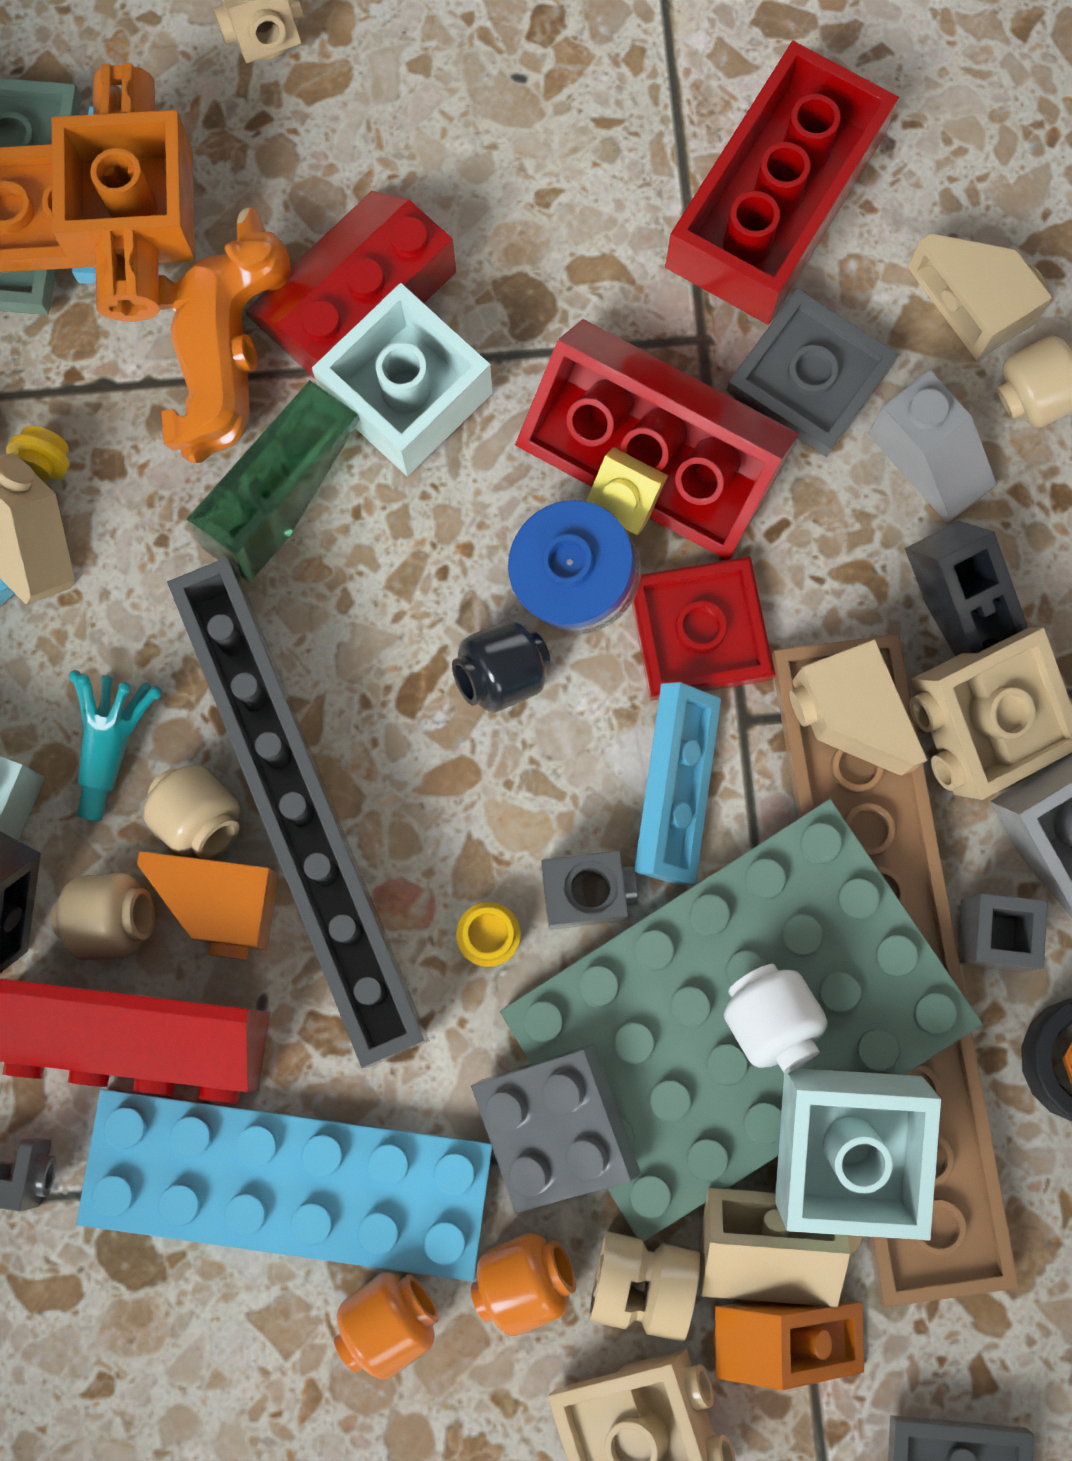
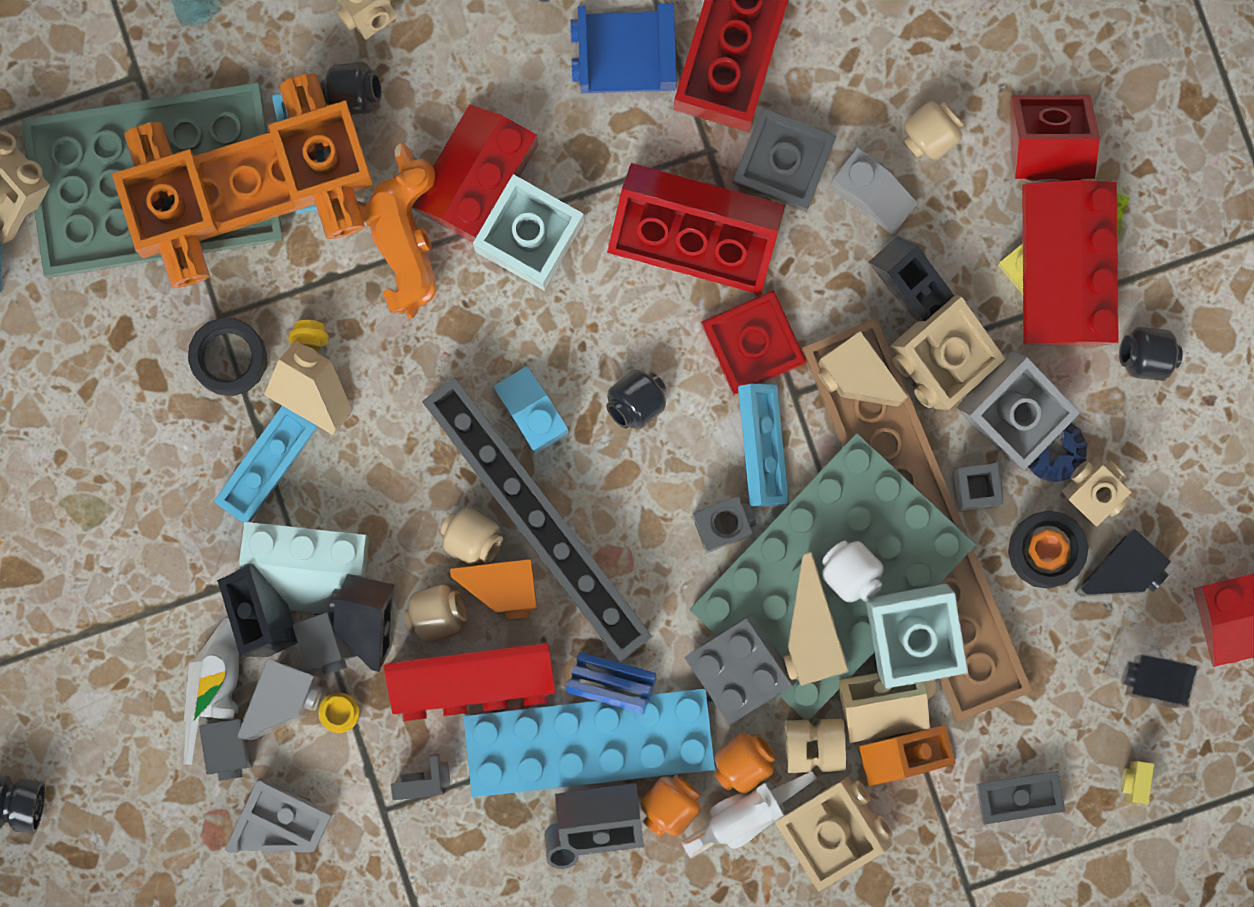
camera: 15 degrees left, 5 degrees up
(105, 737) = (403, 505): teal piece -> none
(213, 120) = (354, 84): none -> black head
(254, 1323) = (593, 823): none -> dark grey hinge
(273, 482) = (466, 318): clear green slope -> none
(338, 647) = (531, 410): none -> medium azure slope
(364, 1079) = (610, 674): none -> blue tile
(488, 934) = (670, 565): yellow plate -> none
(499, 1373) = (744, 815): none -> white animal
(574, 567) = (666, 325): blue piece -> none
(613, 169) = (625, 51): none -> blue panel
(627, 489) = (685, 268): light yellow plate -> none
(684, 1114) = (813, 635): none -> tan slope
(980, 289) = (879, 78): tan slope -> none

